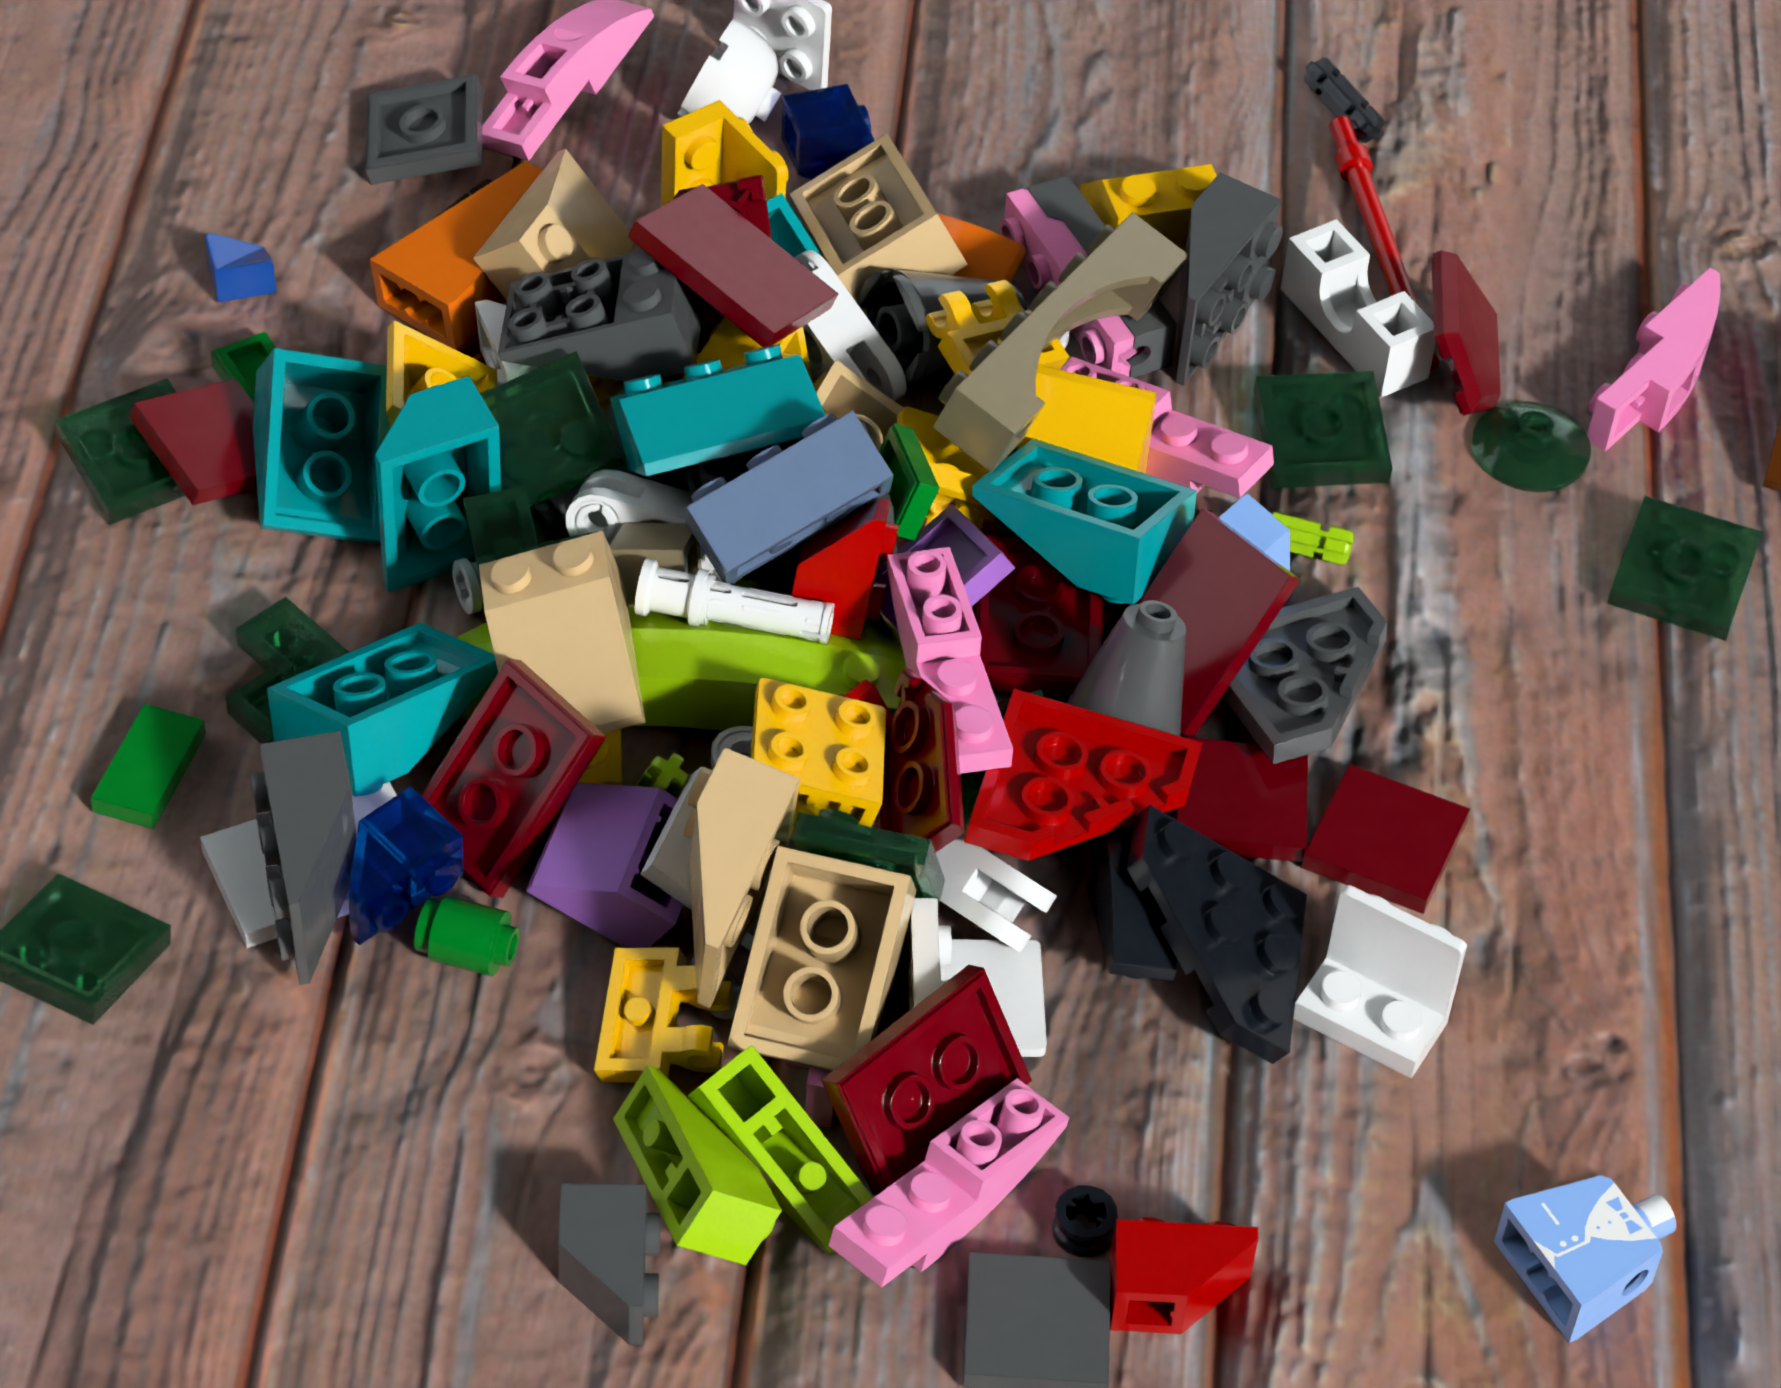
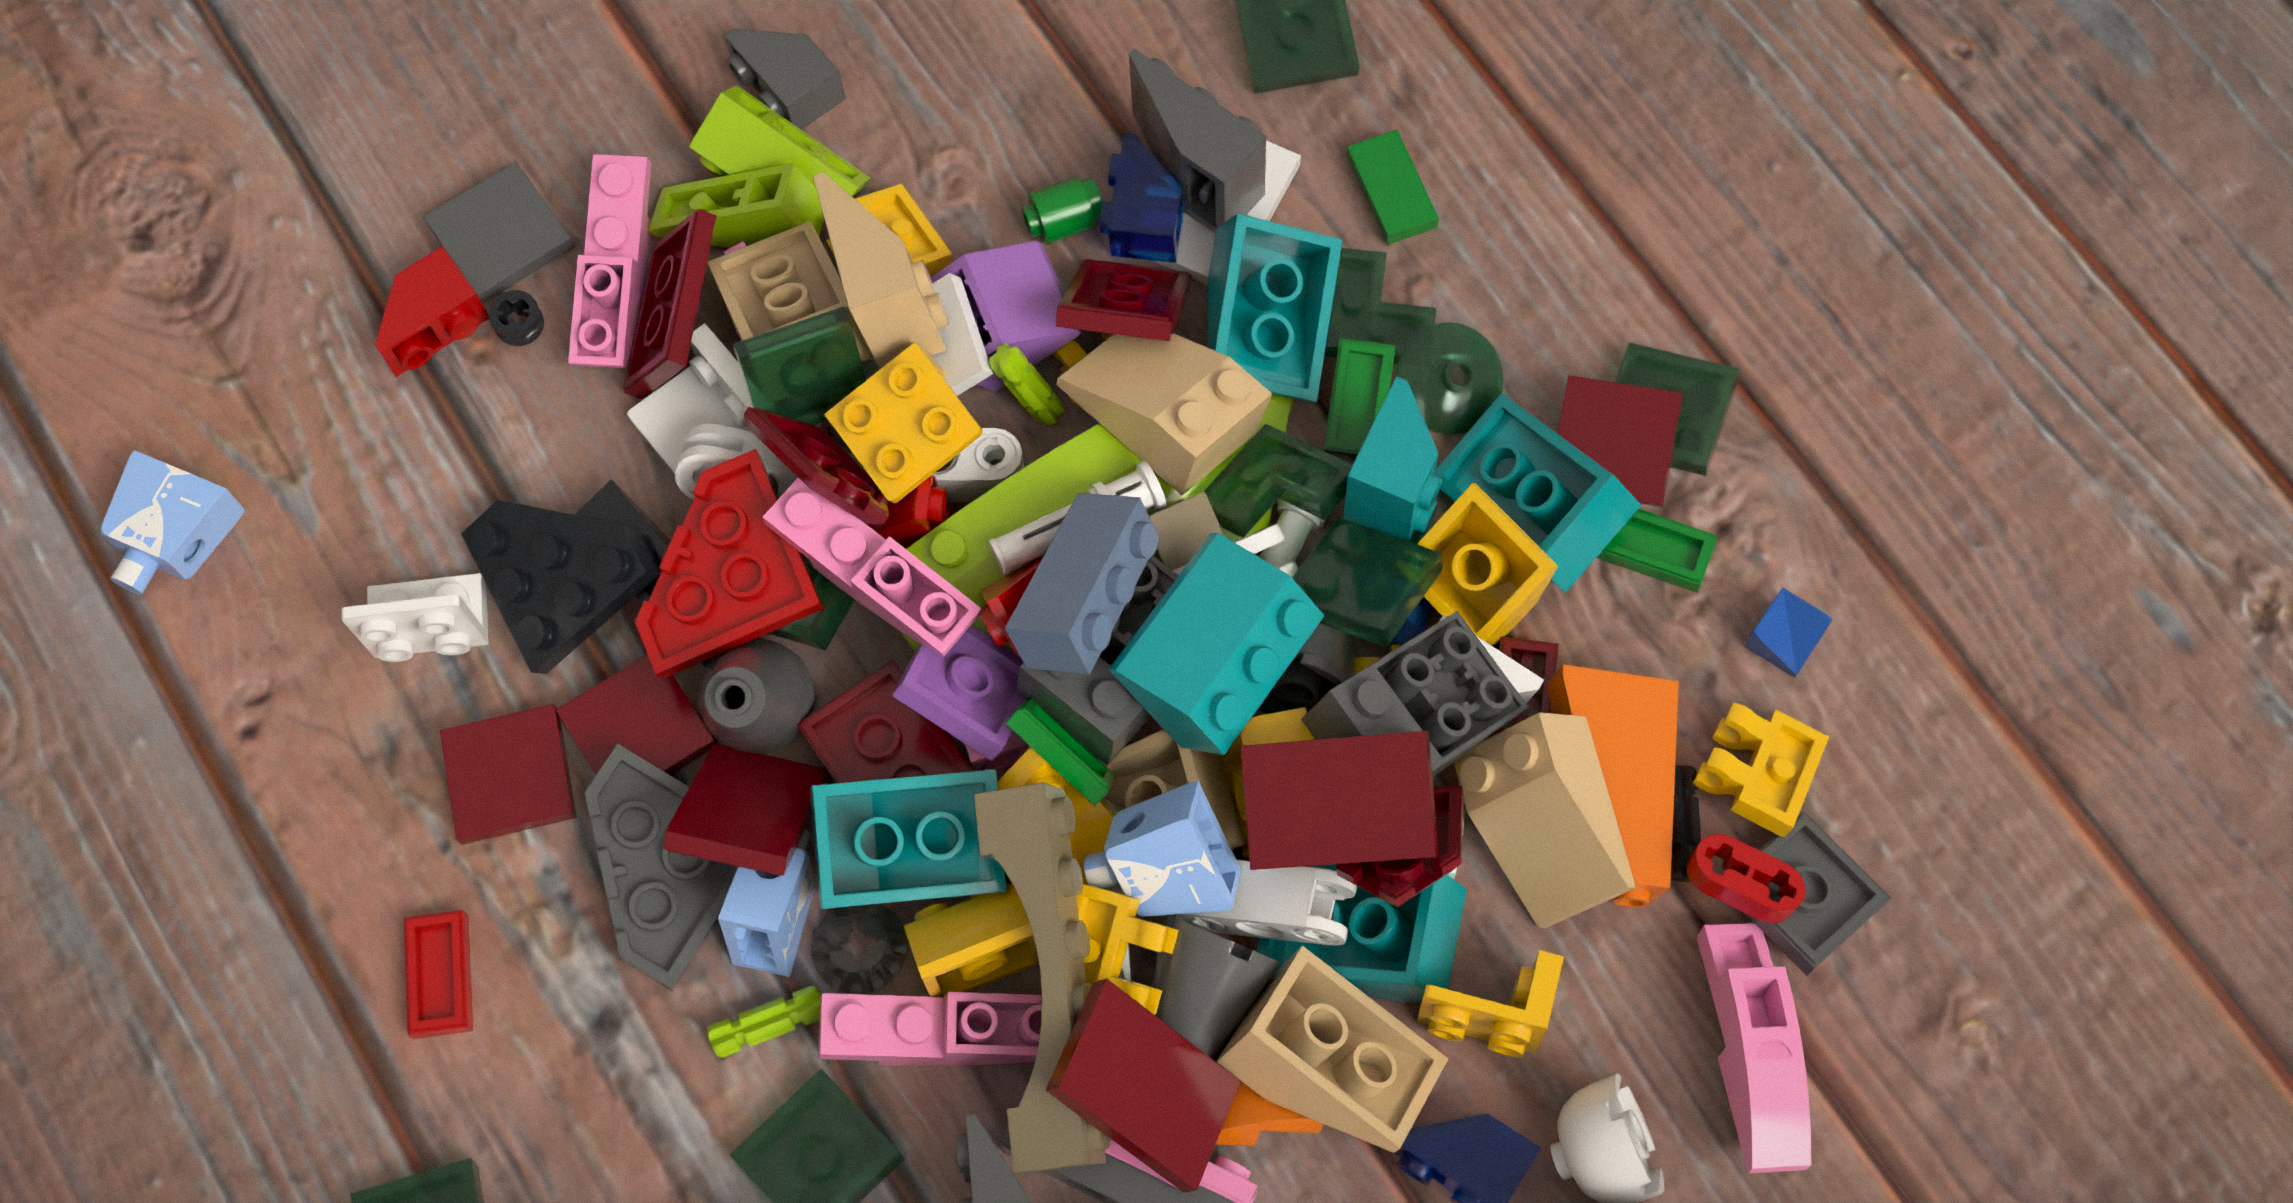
camera: 150 degrees right, 20 degrees up
(285, 578) = (1427, 368): none -> clear green dish
(360, 187) = (1779, 771): none -> yellow plate
(375, 612) = (1357, 394): none -> green tile
(459, 133) = (1746, 878): none -> red beam
(874, 339) = (1168, 856): none -> light blue torso
(1045, 241) = (1143, 1085): none -> dark red tile
(1553, 737) = (438, 974): none -> red tile

